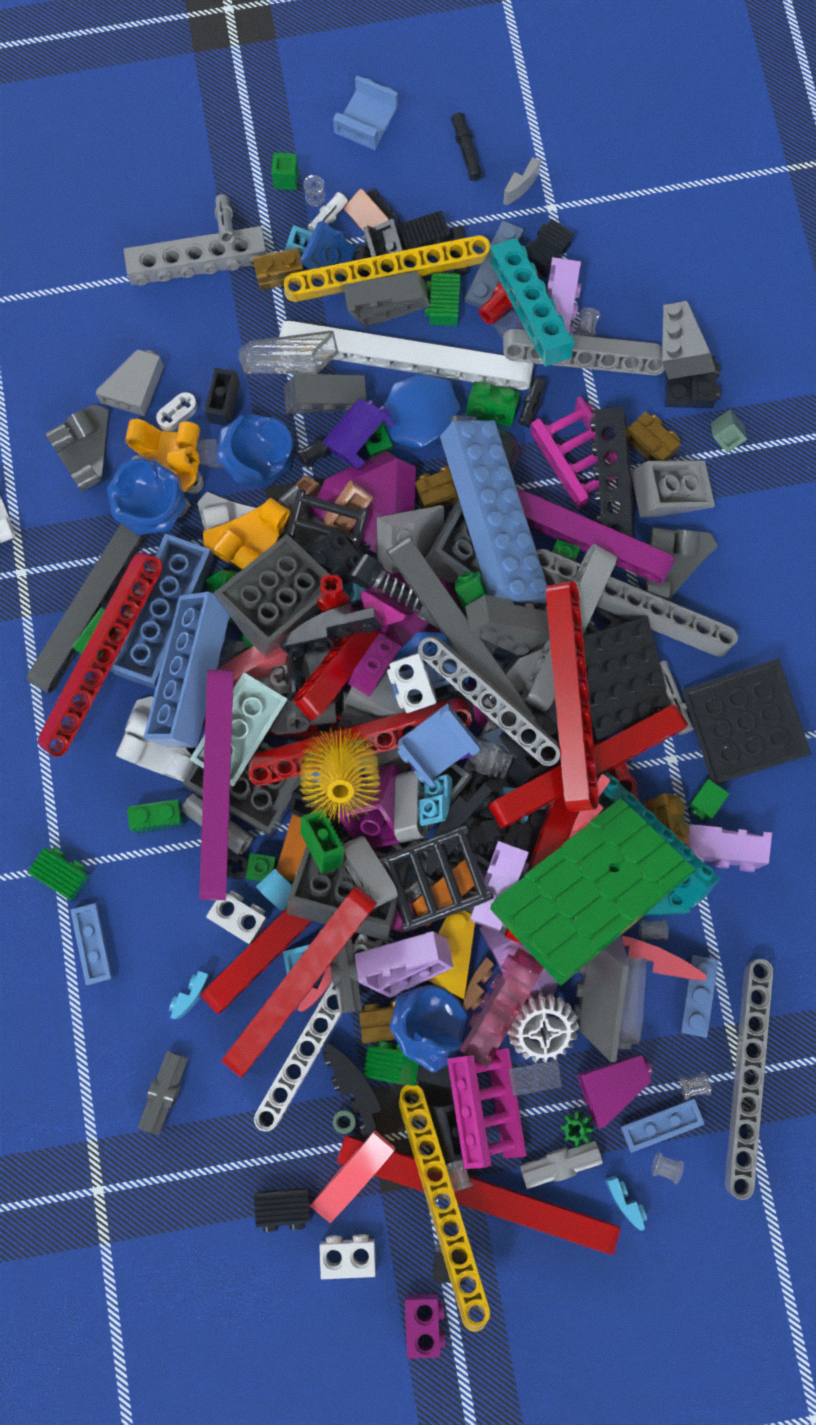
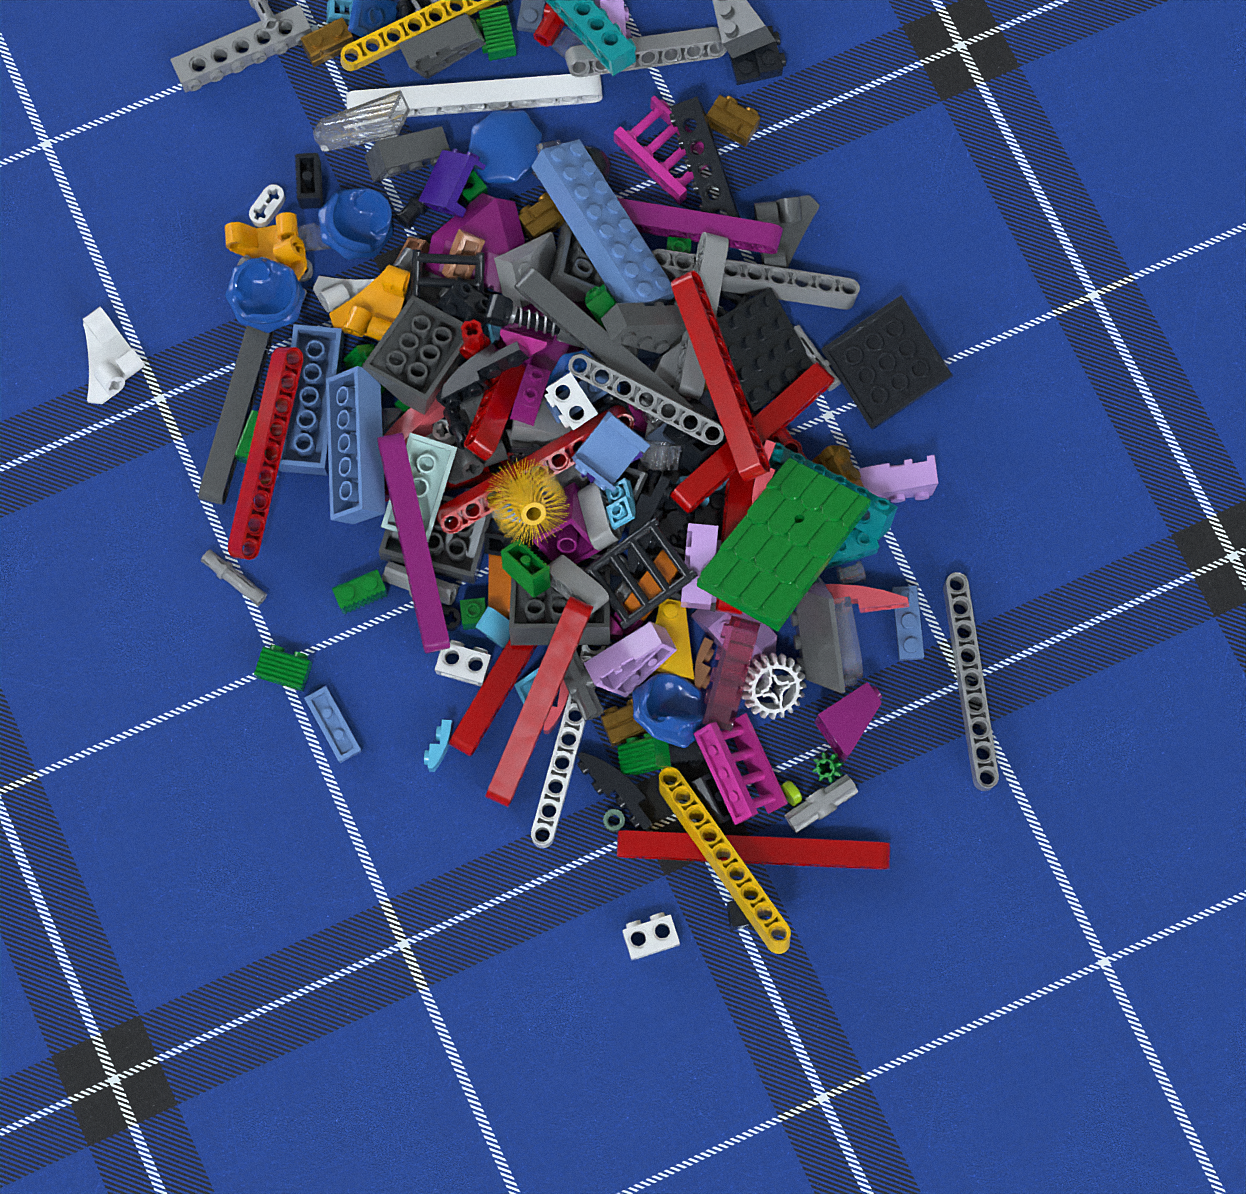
camera: 20 degrees left, 0 degrees up
(33, 761) = (225, 571): none -> light grey pin
(82, 444) = (183, 261): dark grey panel -> none
(132, 383) = (216, 189): light grey slope -> none
(152, 756) = (335, 535): white panel -> none
(163, 1093) = (439, 839): dark grey piece -> none
(282, 1208) = (579, 910): black brick -> none
(352, 1176) = (635, 863): coral slope -> none
(418, 1326) = (728, 978): magenta brick -> none
(458, 1176) = (732, 833): clear bush -> none
(492, 403) = (571, 122): green bracket -> none
(532, 402) = (608, 112): black pin -> none
(532, 1144) = (791, 793): none -> lime tile
(534, 1078) = (777, 733): clear slope -> none
(588, 322) = (642, 22): clear bush -> none
(632, 1211) = (894, 826): medium azure slope -> none
(662, 1125) = (903, 745): medium blue plate -> none
(667, 1168) = (917, 781): clear bush -> none
(671, 487) = (762, 161): light grey slope -> none
(695, 1085) = (932, 702): clear bush -> none
(707, 801) = (870, 444): green brick -> none
(728, 431) = (802, 93): sand green panel -> none

